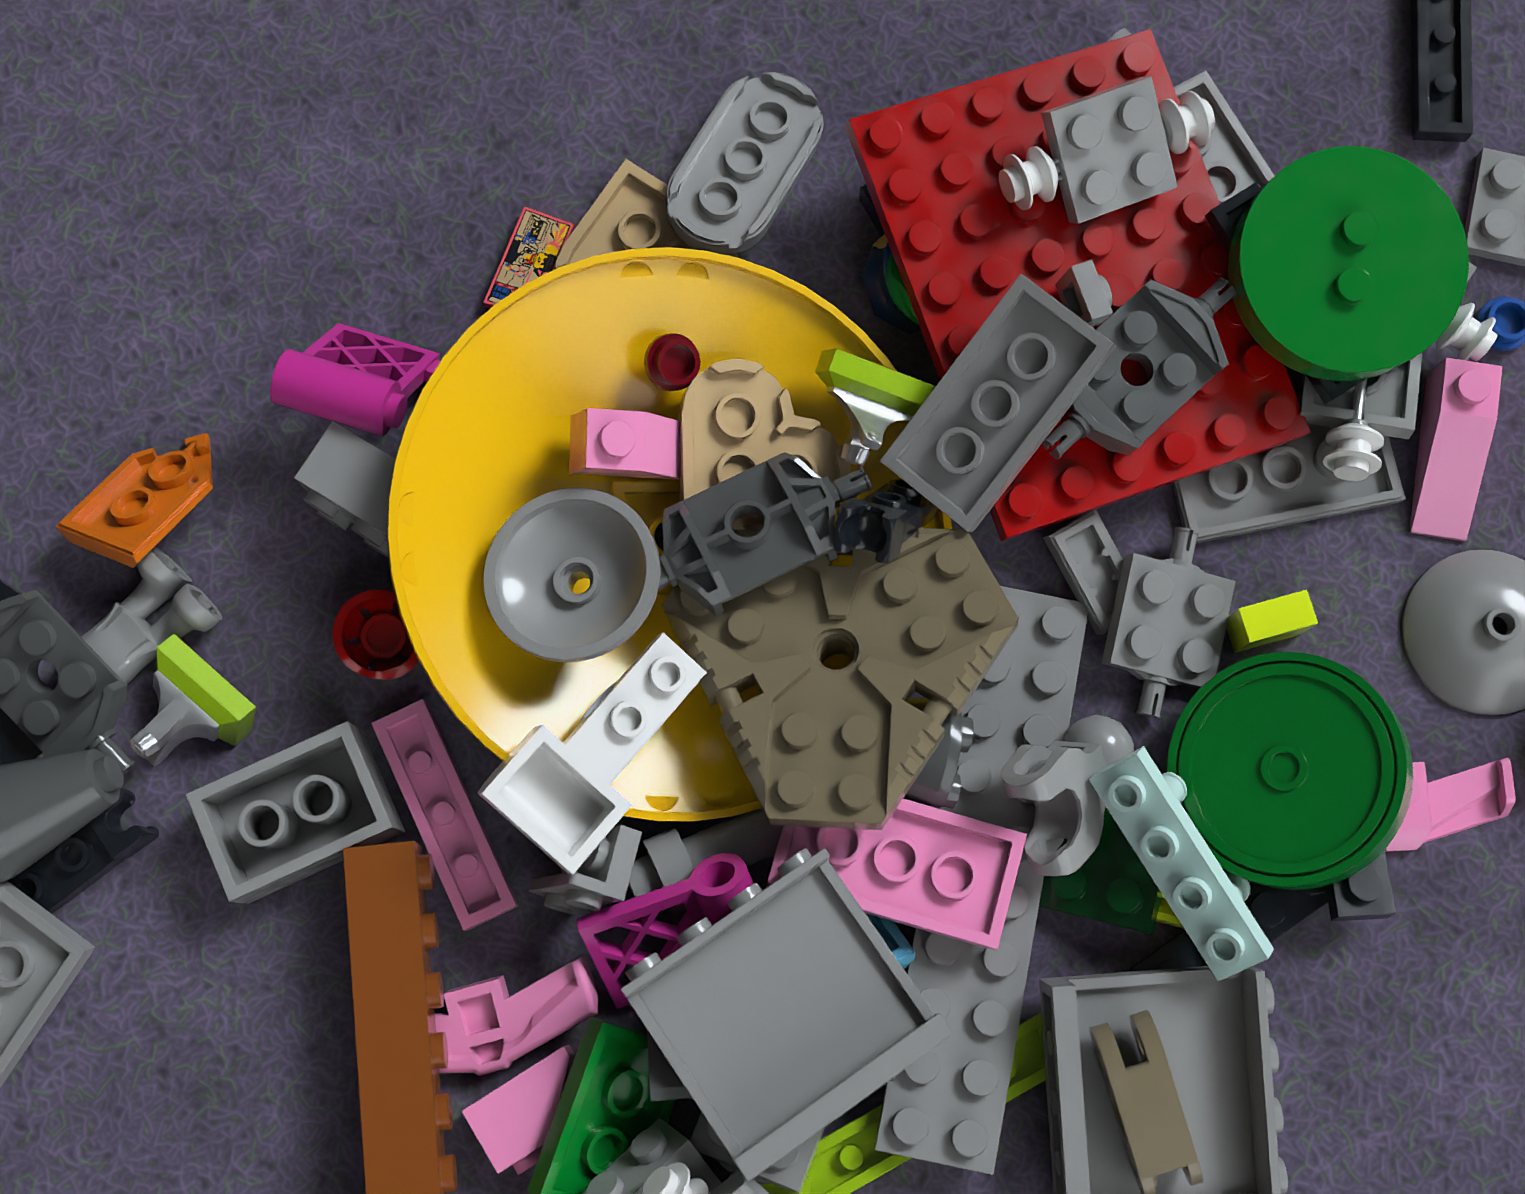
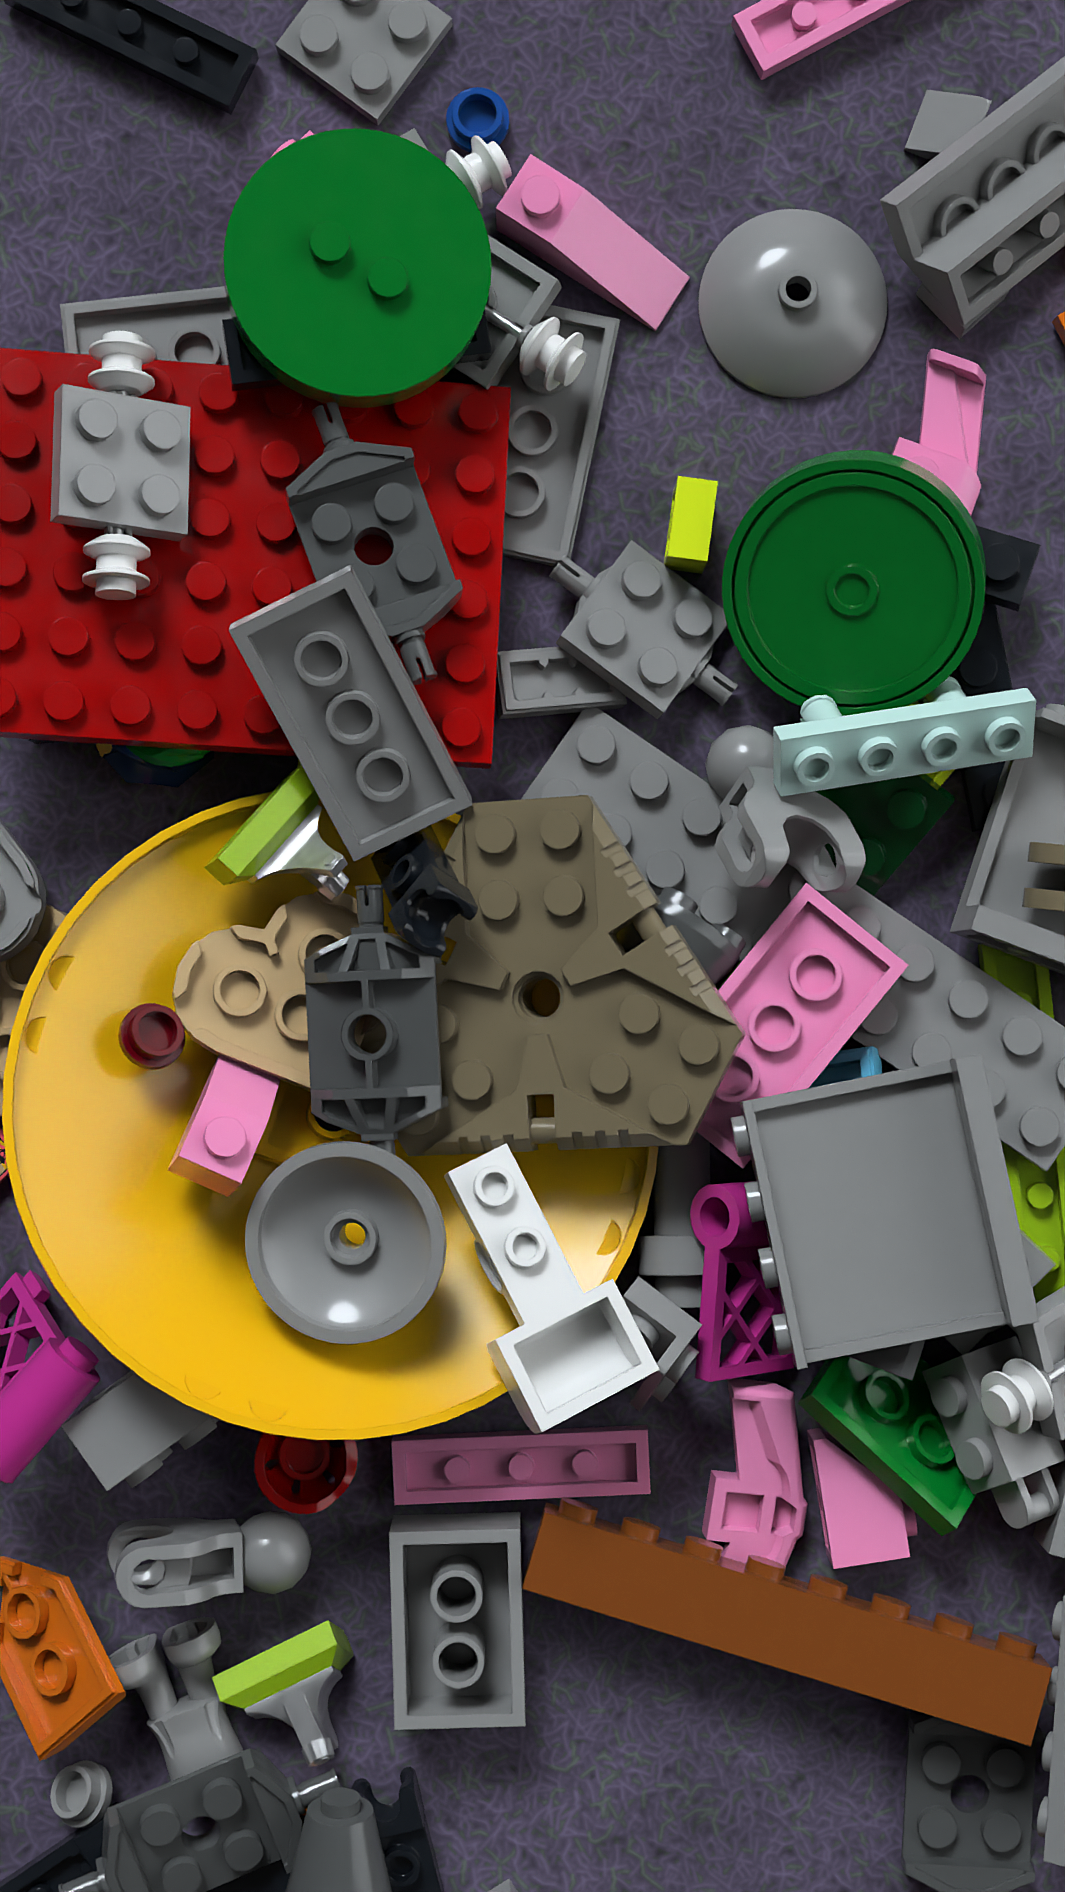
camera: 70 degrees left, 10 degrees up
(40, 571) = (81, 1794): none -> light grey plate
(269, 588) = (206, 1558): none -> light grey piece
(1086, 293) = (273, 565): light grey plate -> none

